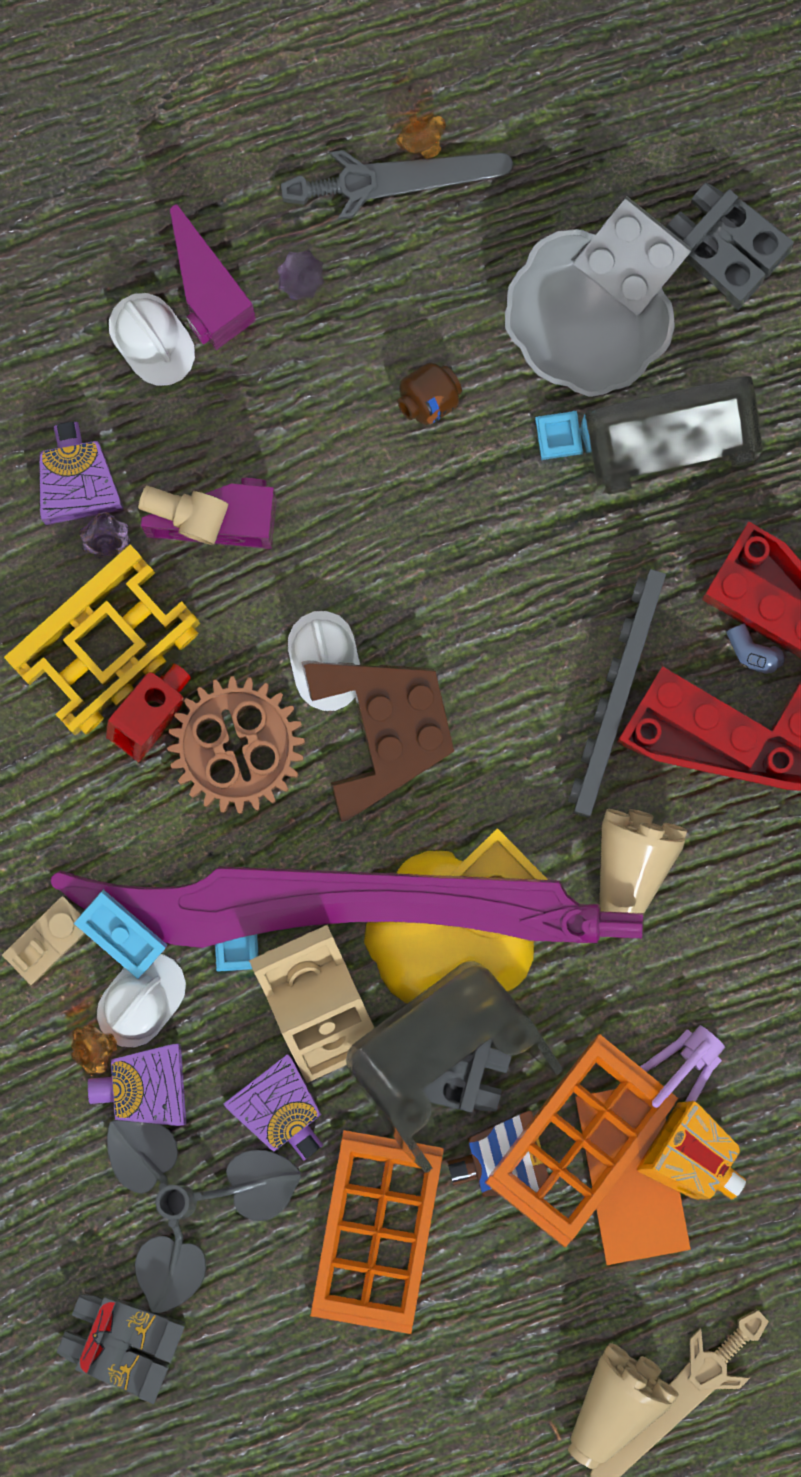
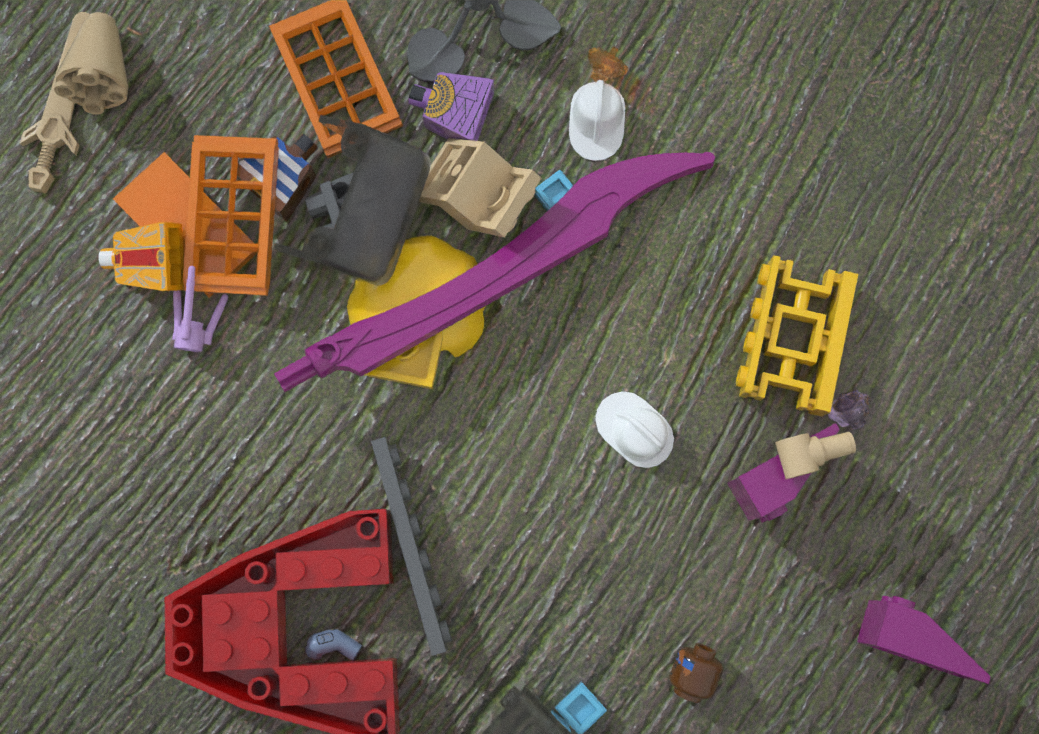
camera: 145 degrees right, 5 degrees down
(45, 941) = (687, 115): tan plate -> none
(75, 479) = (900, 435): medium lavender torso -> none
(120, 934) = (641, 147): medium azure plate -> none
(136, 723) = (737, 291): red torso -> none
(144, 1087) = (553, 62): medium lavender torso -> none
(151, 339) = (920, 575): white piece -> none
(199, 757) = (673, 301): nougat gear -> none
(300, 275) = (851, 698): clear purple piece -> none
(400, 723) = (552, 419): reddish brown wing -> none
(635, 859) = (319, 432): tan cone -> none

